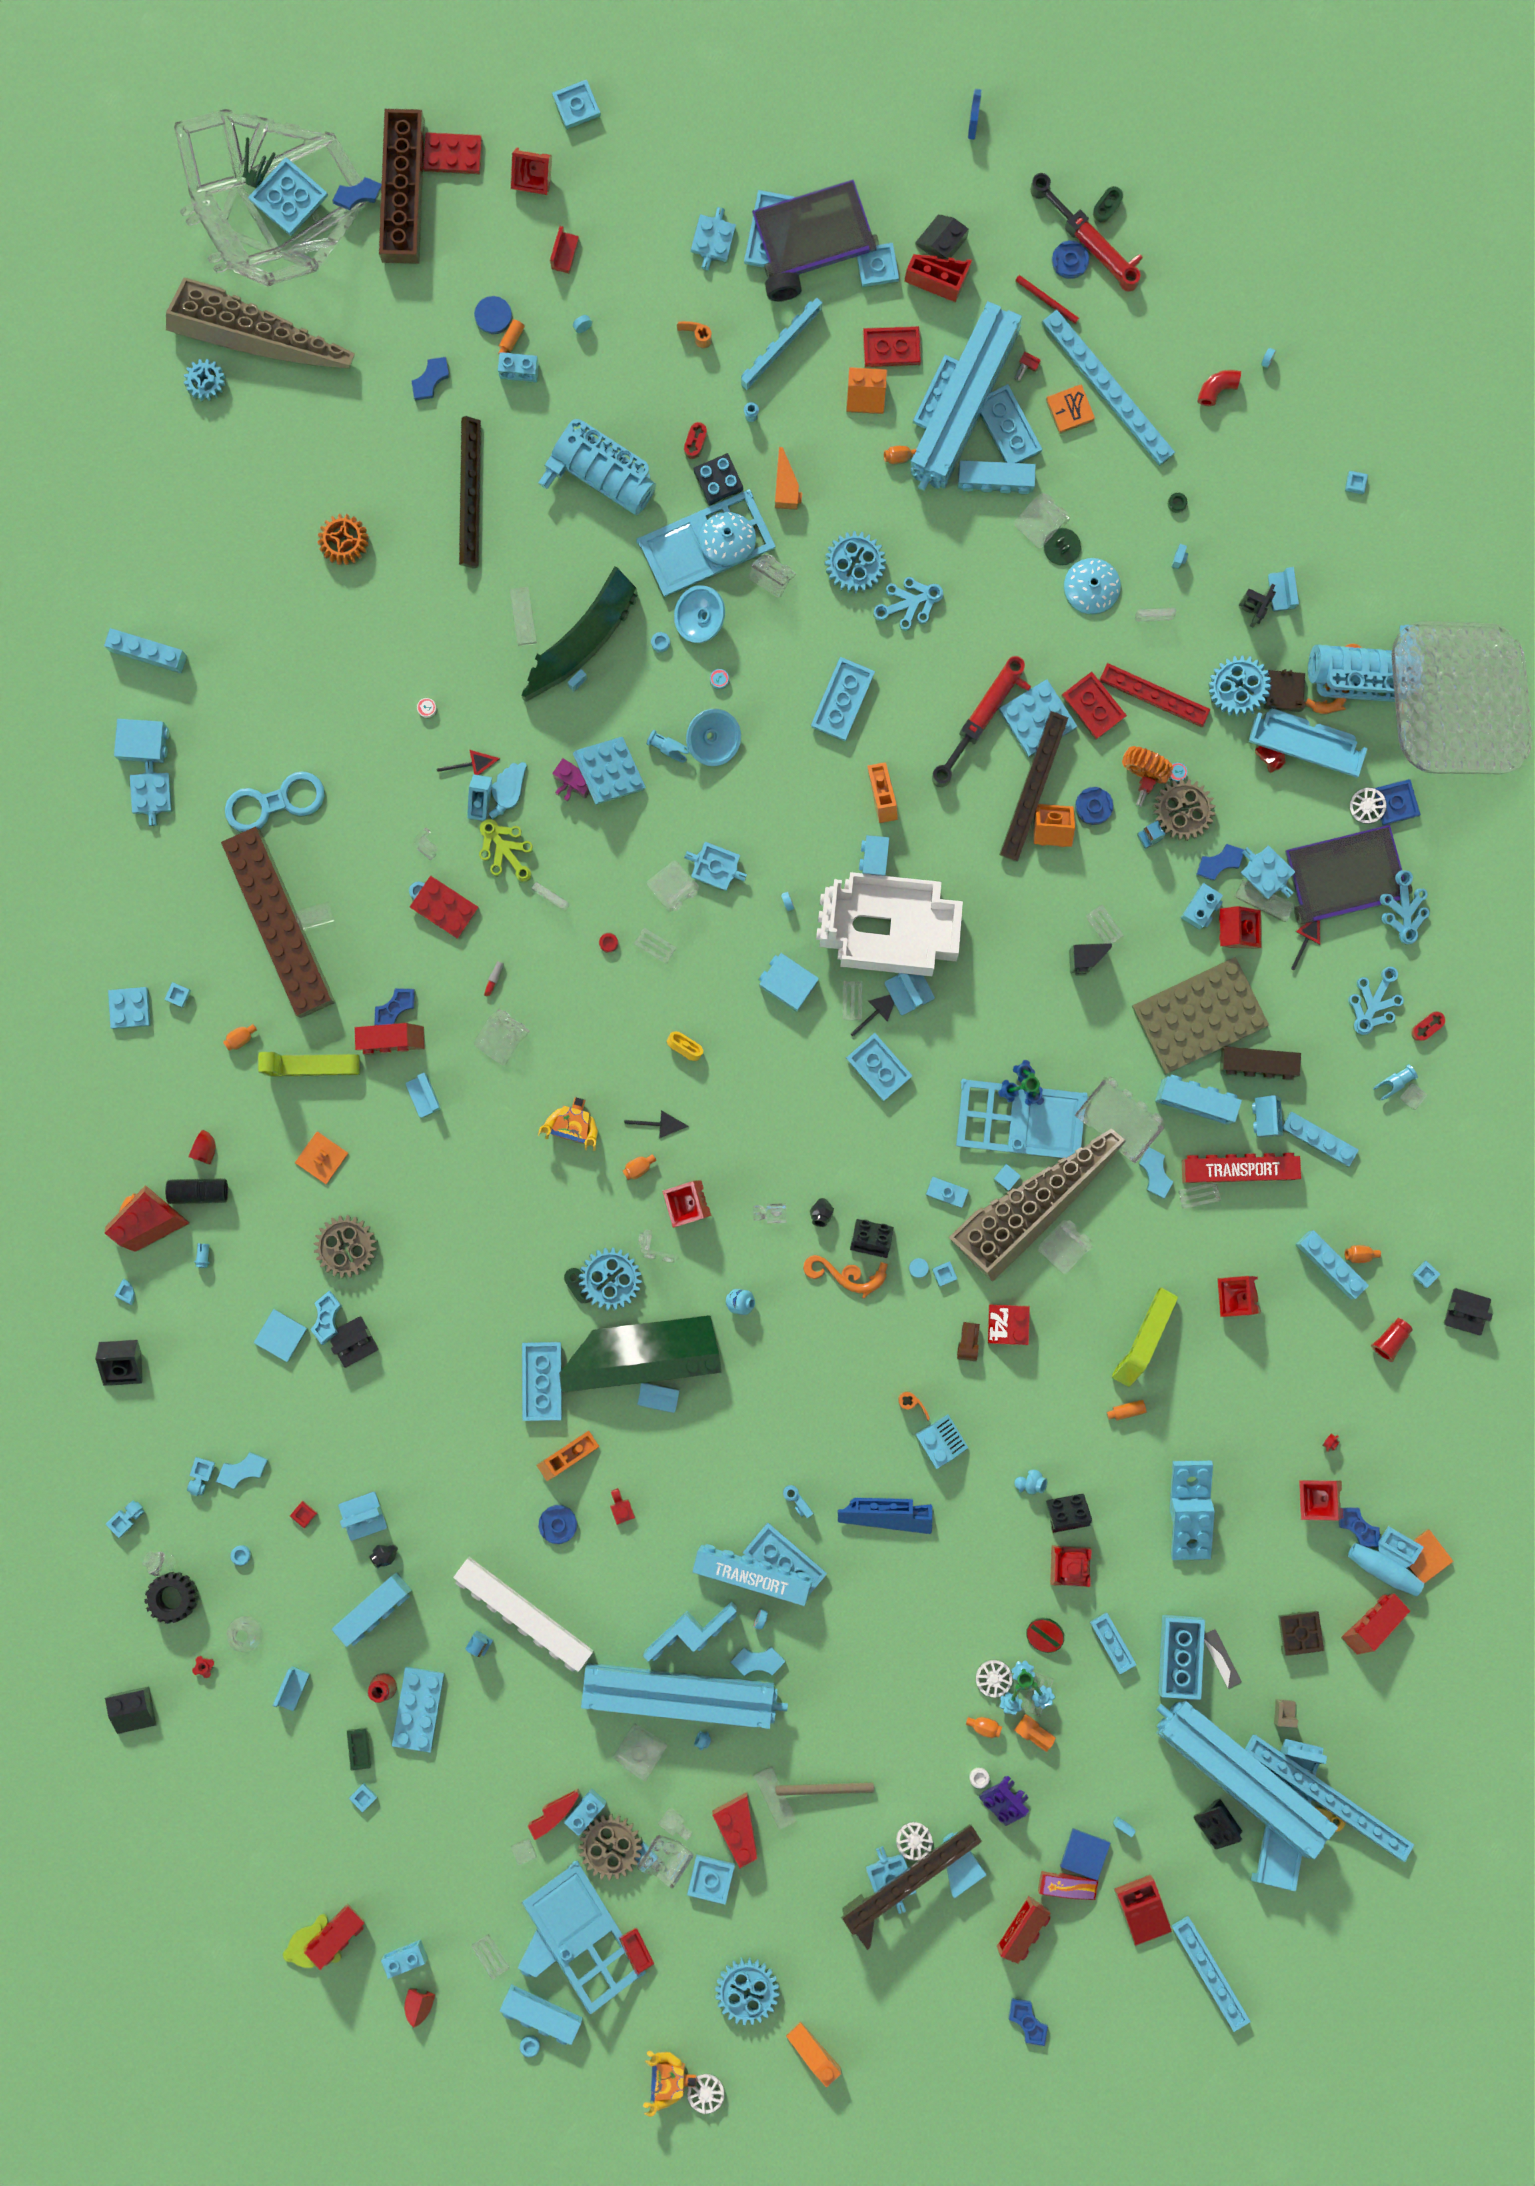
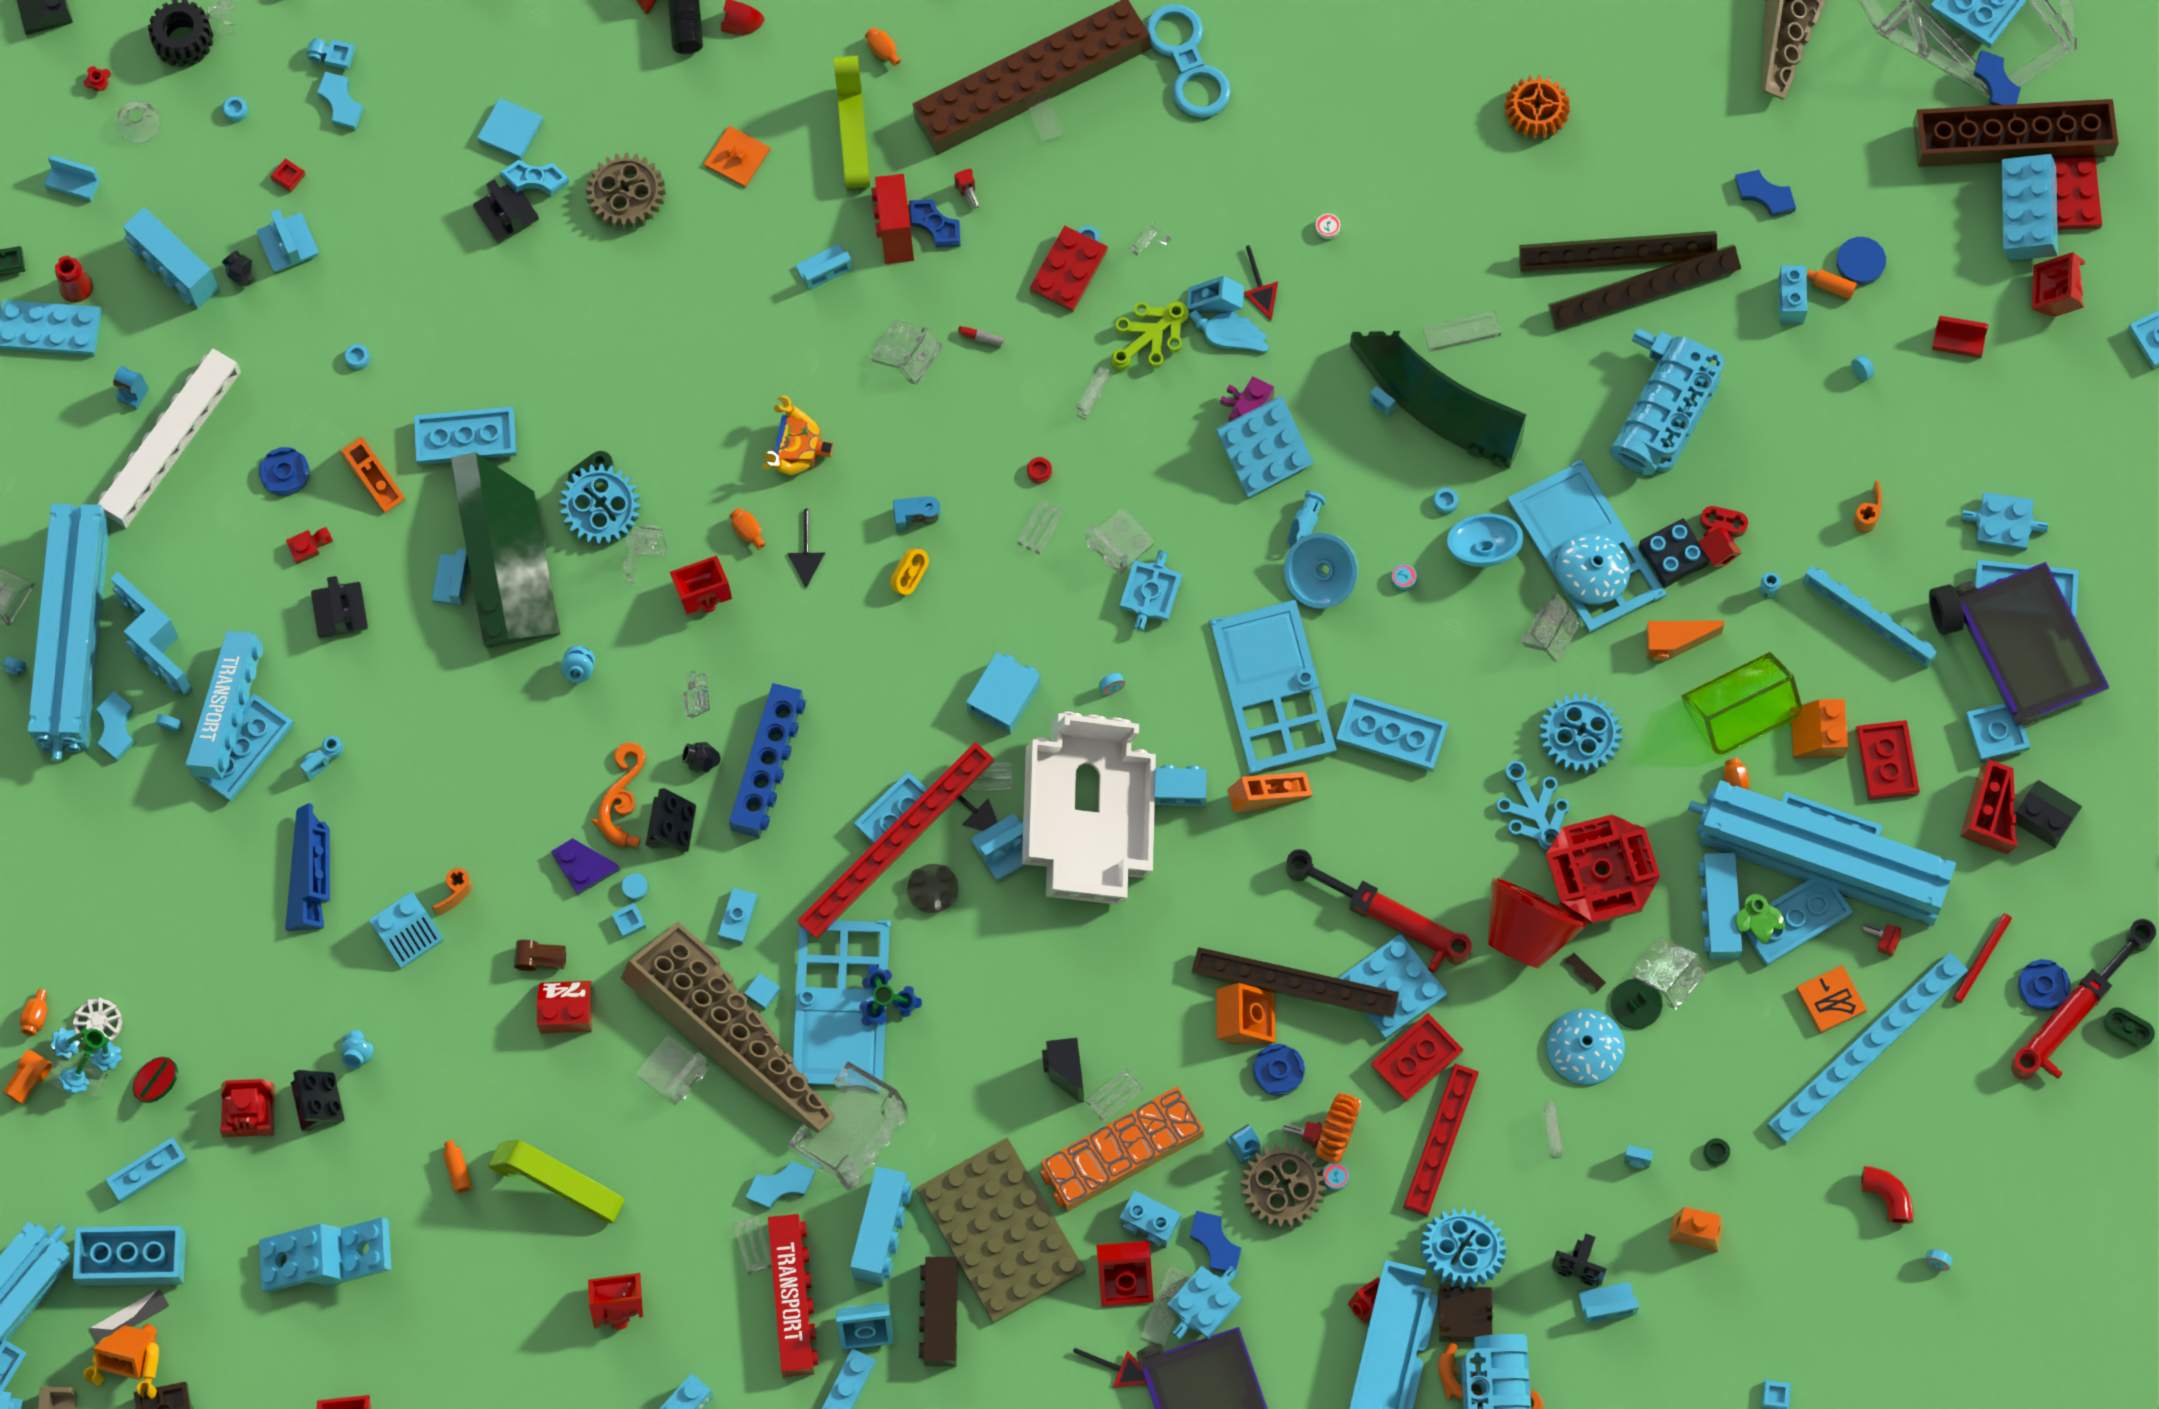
camera: 90 degrees right, 15 degrees down
(202, 1255) = (605, 30): medium azure pin -> none
(365, 980) = (966, 184): none -> red piece
(465, 183) = (2029, 207): none -> medium azure brick
(465, 1464) = (357, 357): none -> medium azure tile
(500, 476) = (1644, 286): none -> dark brown plate
(634, 1035) = (915, 510): none -> dark azure leg
(677, 1484) = (339, 608): none -> black bracket
(718, 444) = (1719, 546): none -> red brick
(779, 788) = (1266, 661): none -> medium azure door
(842, 441) = (1744, 703): none -> clear neon green windscreen
(876, 1171) = (779, 699): none -> blue brick
(898, 1306) = (583, 865): none -> dark purple wing
(903, 1069) = (895, 841): none -> red plate
(937, 1046) = (932, 888): none -> clear smoke dish
(970, 537) = (1607, 844): none -> red piece
(1007, 611) = (1528, 925): none -> red cone
(1012, 449) = (1761, 921): none -> bright green plate
(1037, 579) = (1586, 972): none -> dark brown piece
(1148, 923) = (1121, 1149): none -> orange brick
(1237, 520) = (1696, 1229): none -> orange torso
(1257, 1657) = (129, 1354): none -> orange torso

